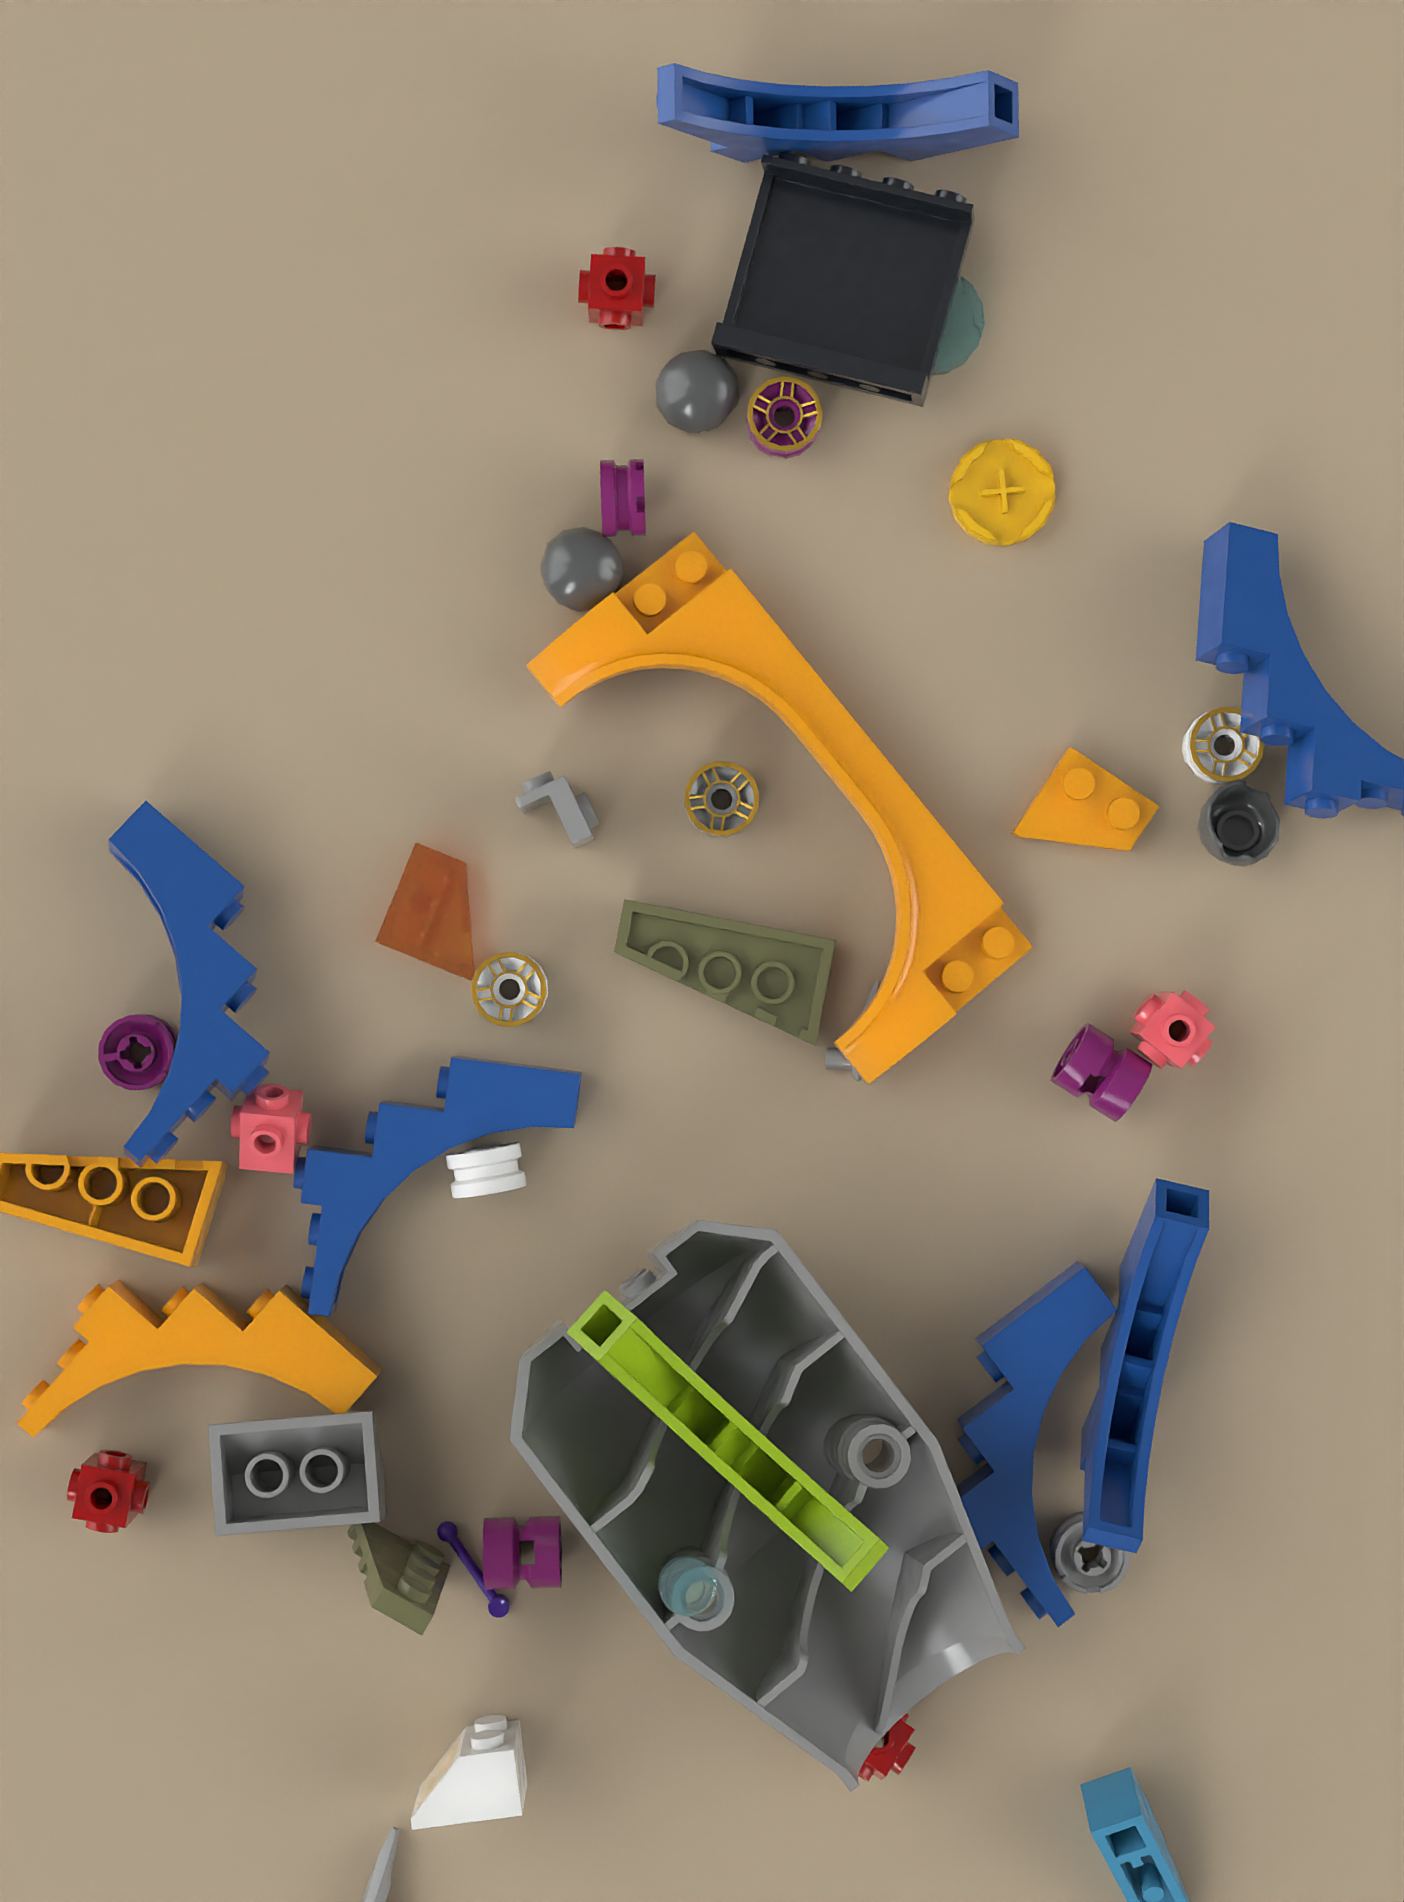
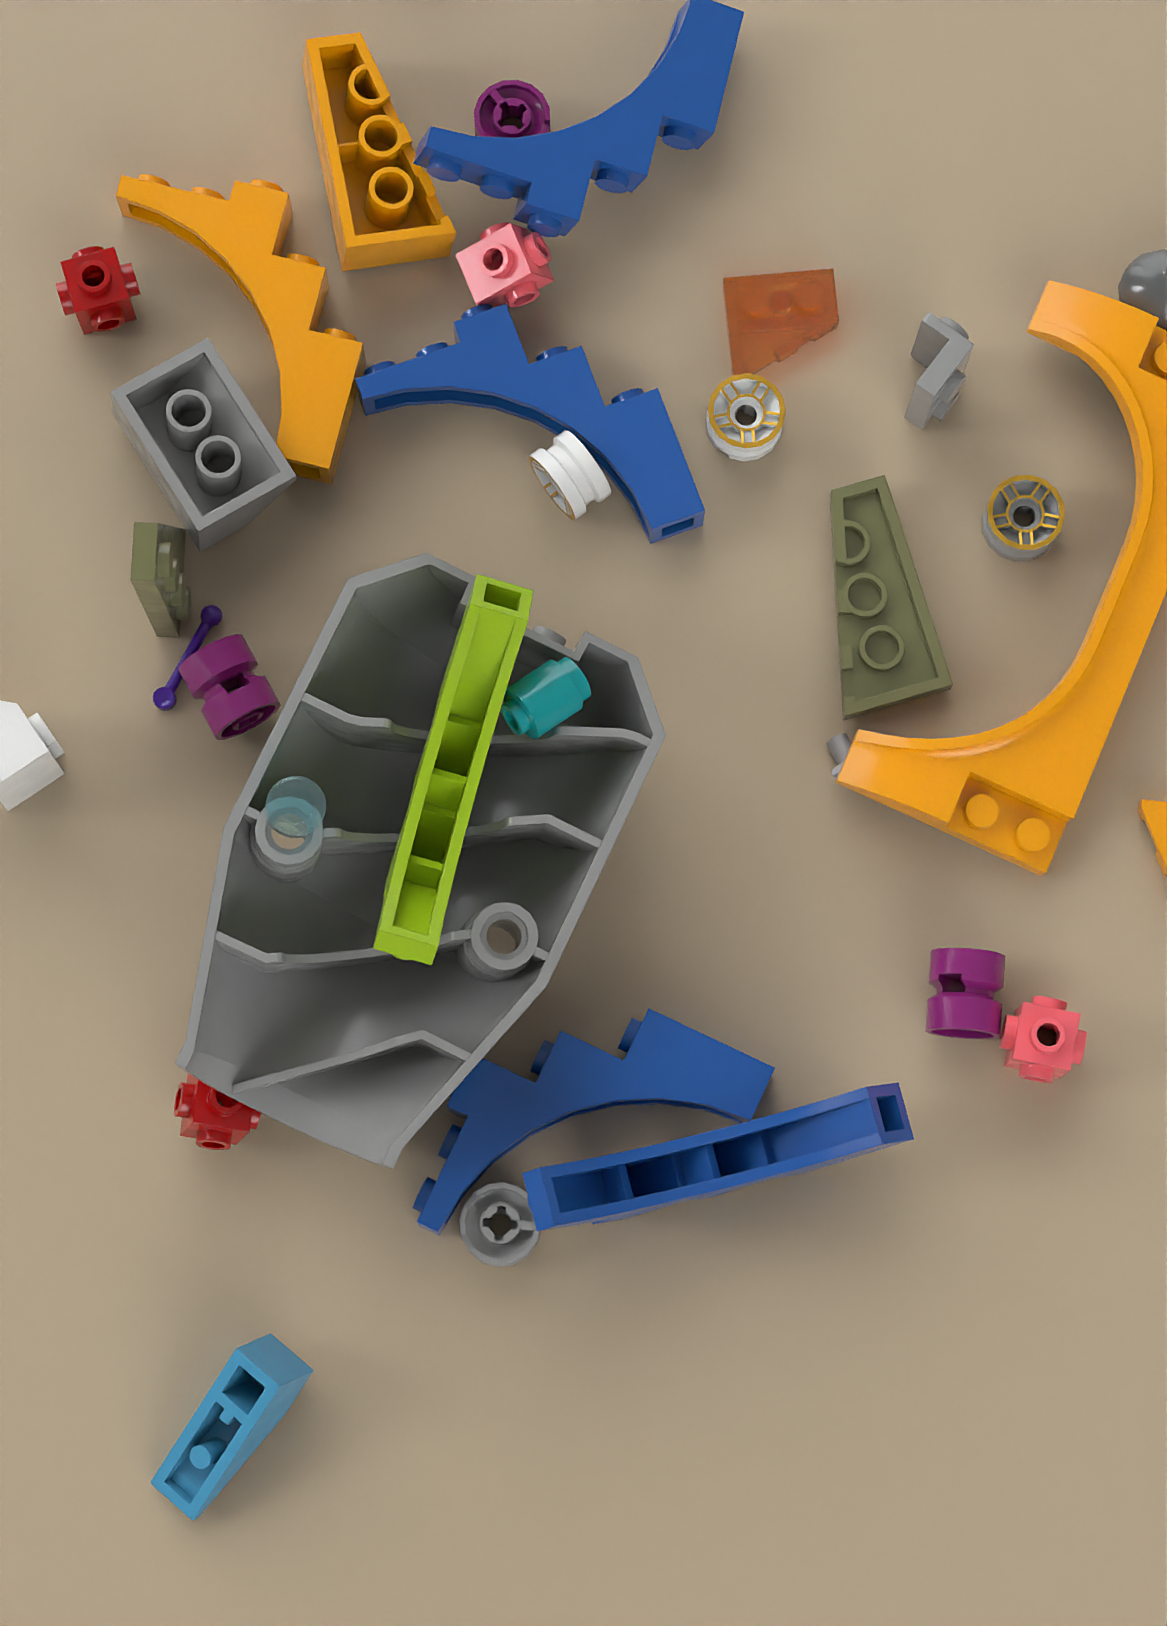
camera: 60 degrees right, 10 degrees down
(694, 1318) = (545, 697): none -> teal brick

